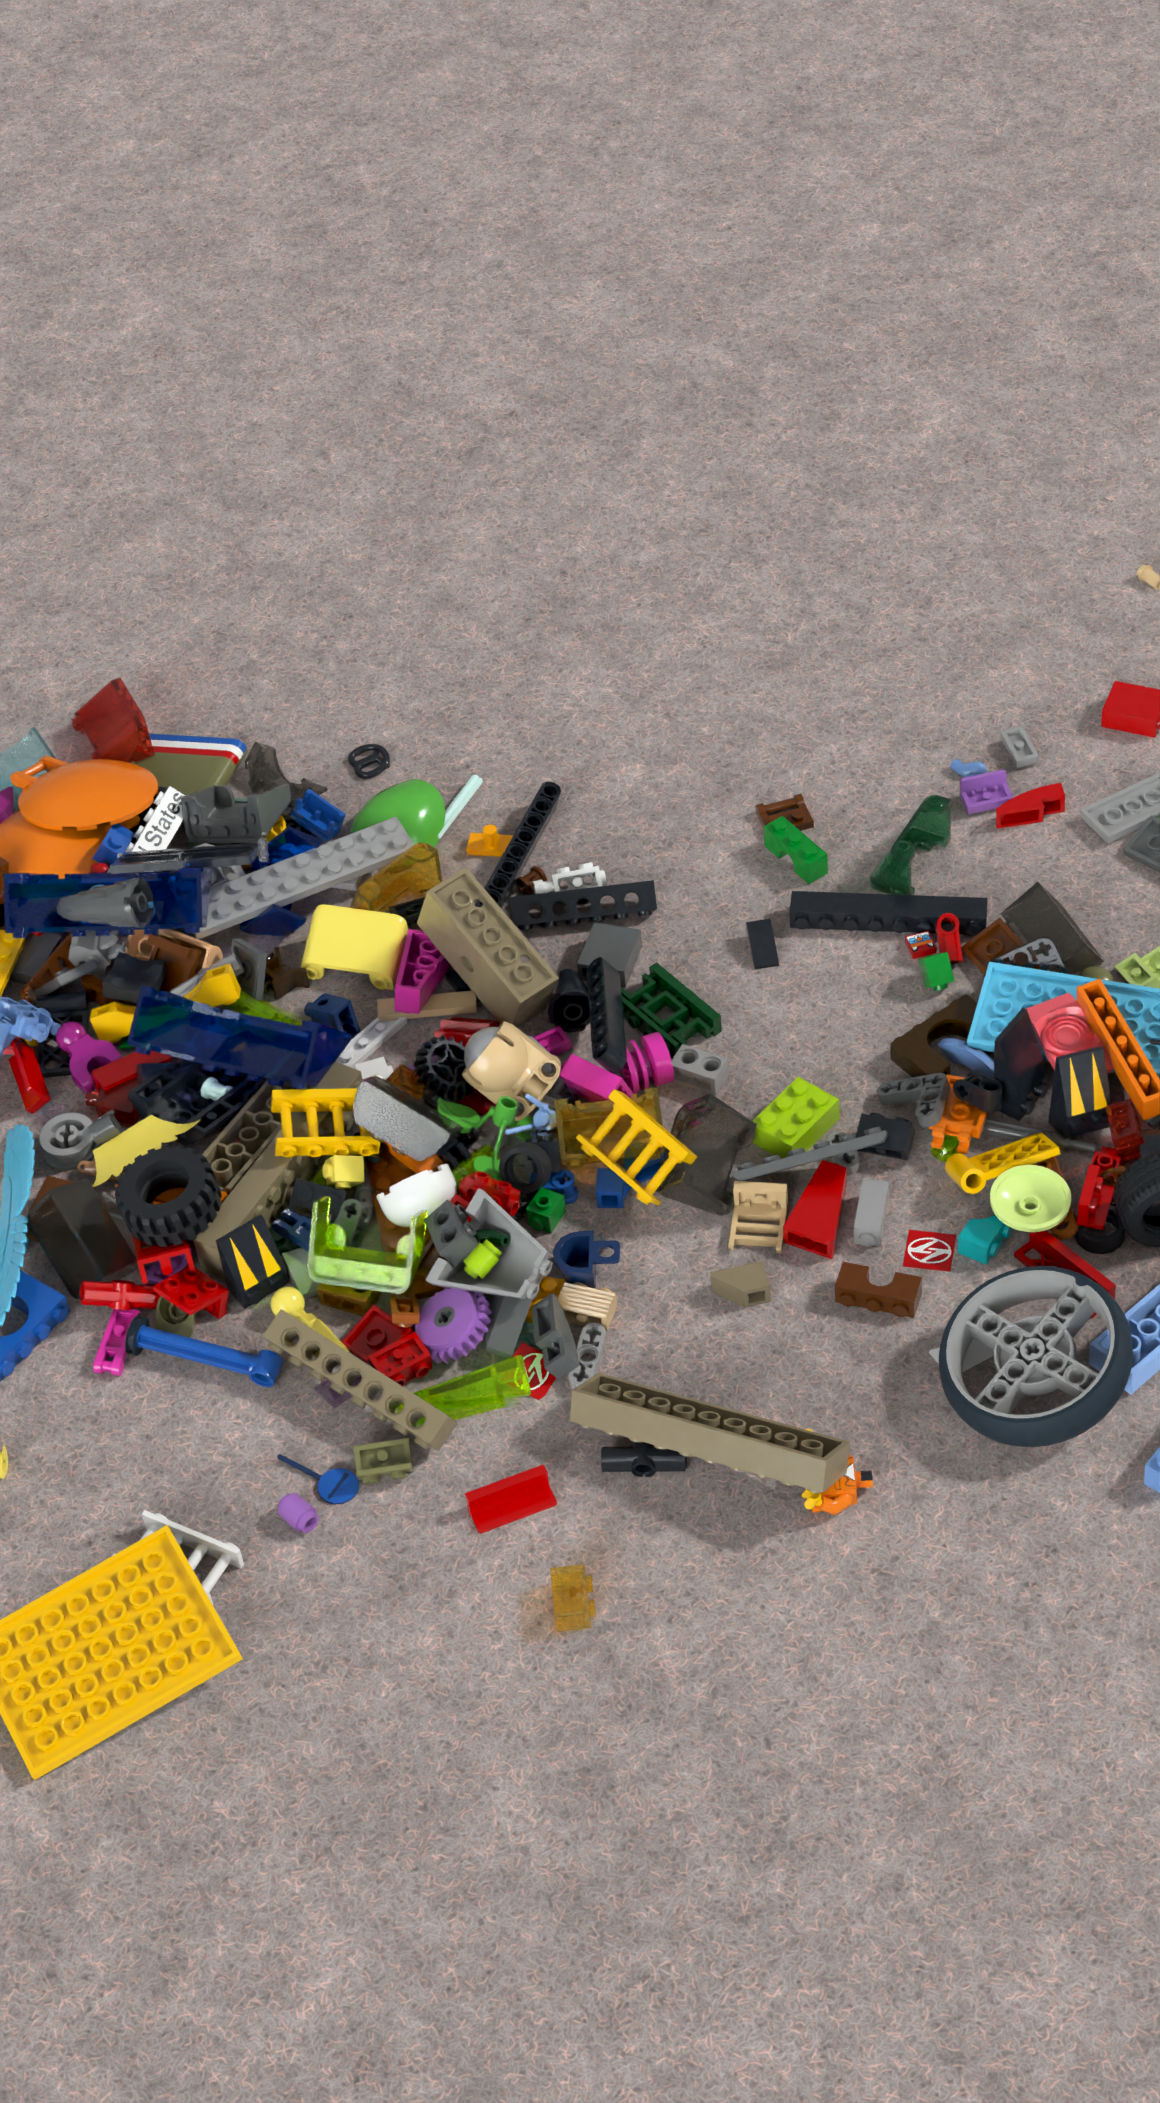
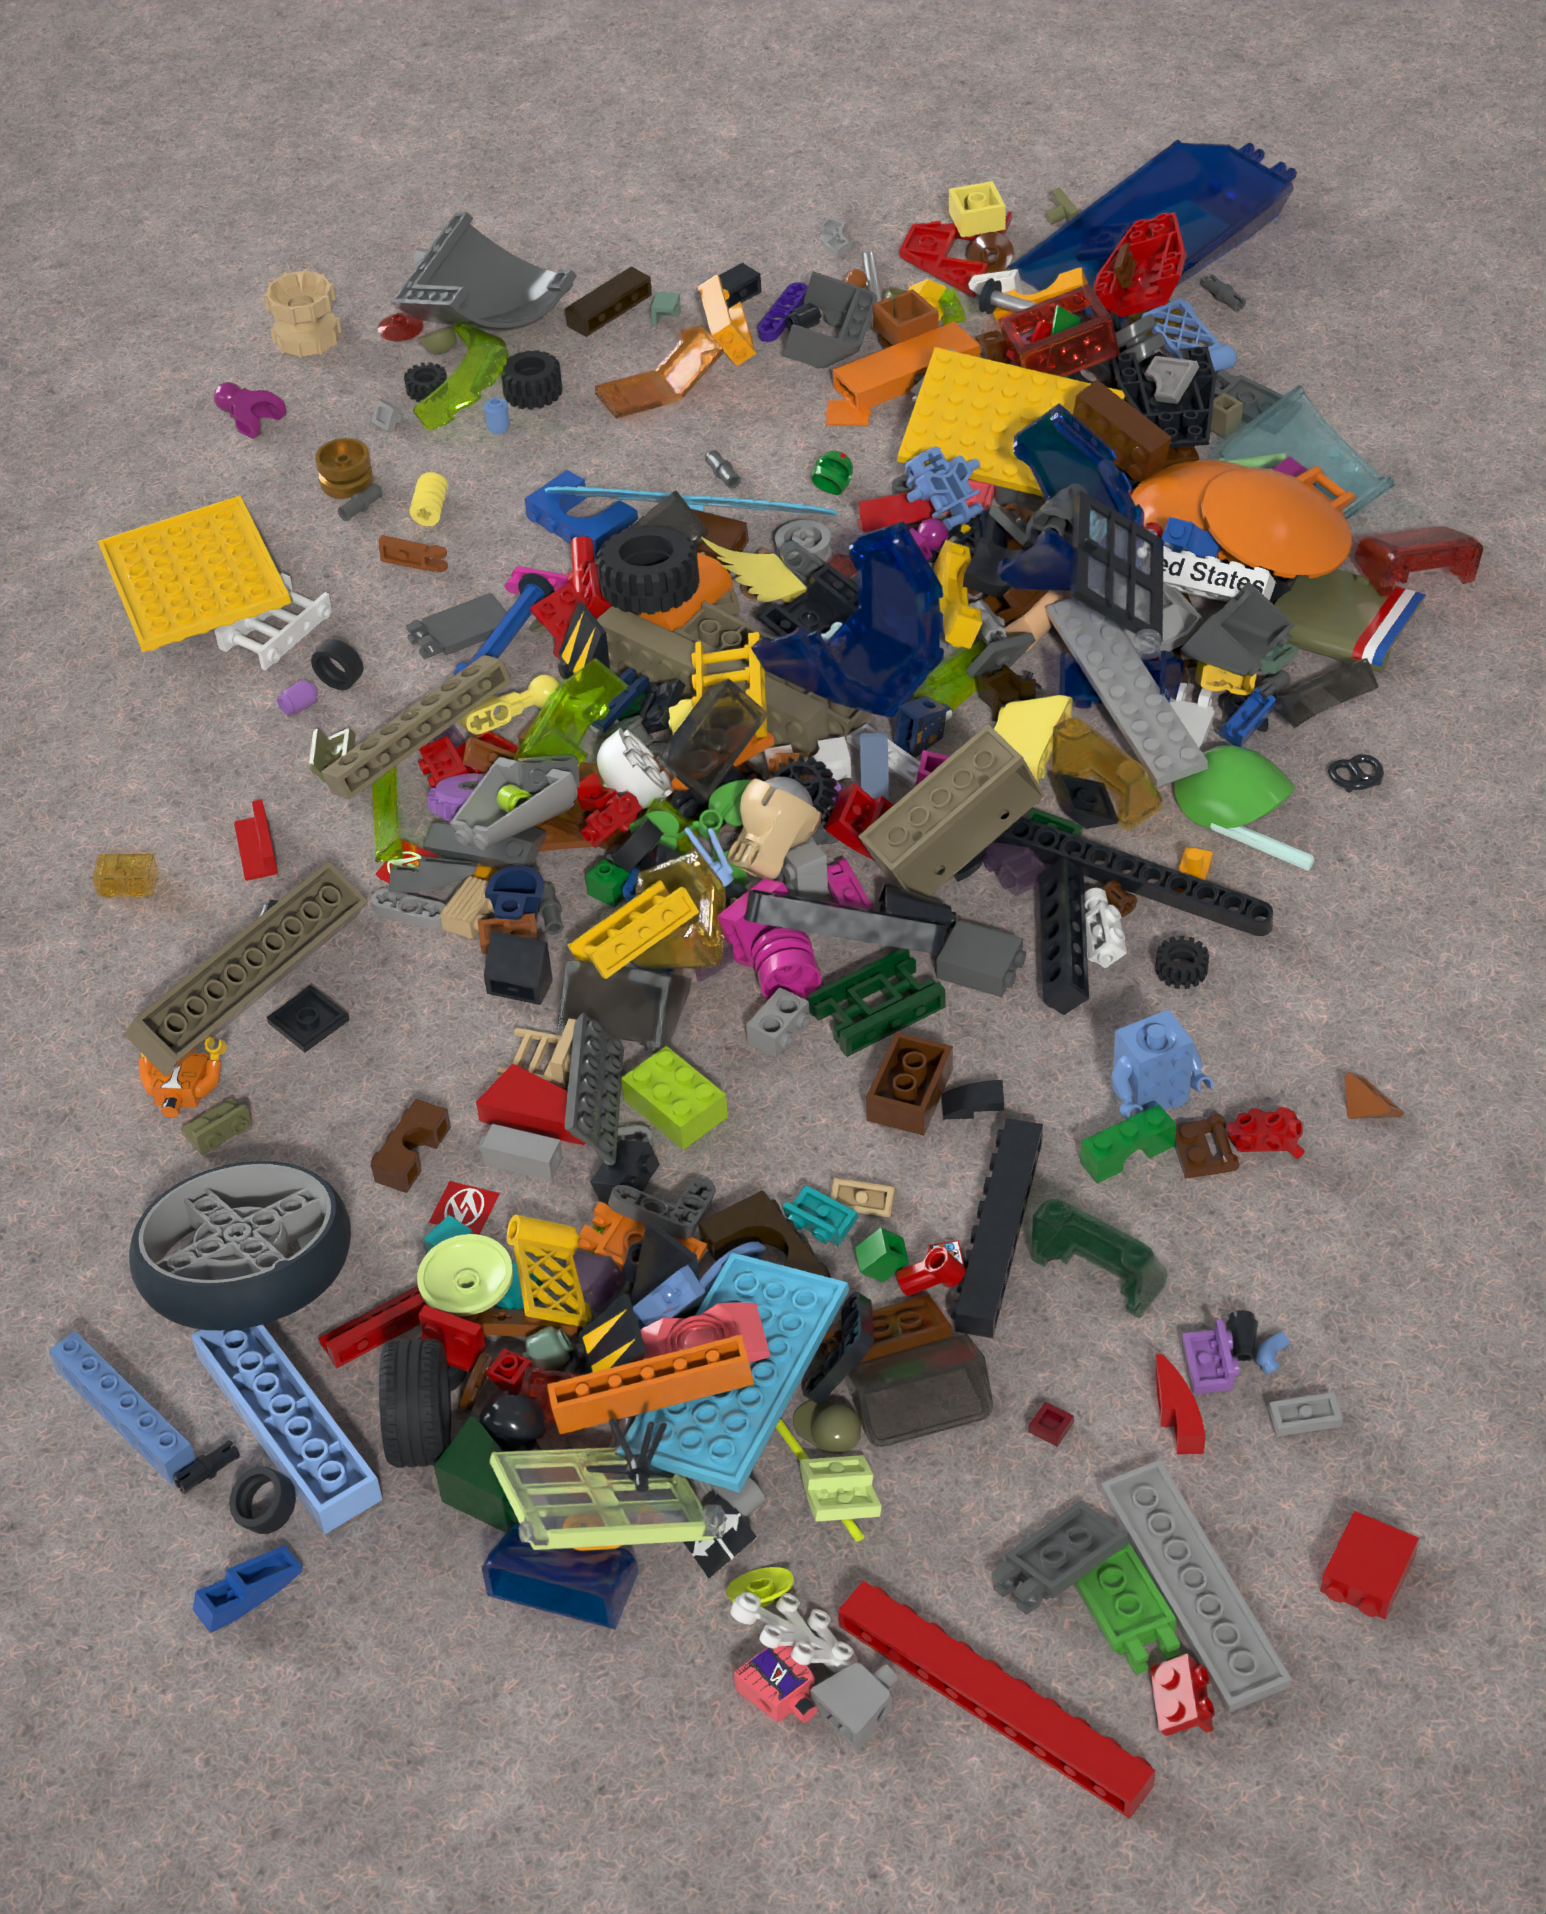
camera: 95 degrees right, 0 degrees up
(67, 1461) = (412, 554): none -> dark orange hinge
(179, 1399) = (457, 626): none -> dark grey tile
(257, 1477) = (345, 656): none -> black tyre
(334, 1486) = (330, 724): blue piece -> none
(400, 1038) = (874, 764): none -> sand blue slope
(601, 848) = (1180, 974): none -> black tyre
(624, 1274) = (523, 927): none -> dark orange hinge
(667, 1247) = (517, 968): none -> black slope
(726, 735) = (1366, 1100): none -> dark orange slope
(732, 825) = (1155, 1064): none -> medium blue torso
(740, 1396) = (307, 1019): none -> black tile
(742, 1284) = (455, 1033): dark tan slope -> none
(758, 975) = (909, 1083): none -> reddish brown brick
(774, 767) = (1267, 1131): none -> red brick
(870, 999) = (864, 1197): none -> tan slope
(878, 1441) = (217, 1126): none -> olive bracket
(900, 1015) = (821, 1216): none -> teal bracket
(951, 780) = (1244, 1332): none -> black cone
(1000, 1132) = (598, 1278): none -> clear purple slope
(1039, 1065) = (669, 1298): none -> medium blue hinge
(1061, 869) = (1051, 1424): none -> dark red plate
(1074, 1153) = (548, 1348): none -> sand green head

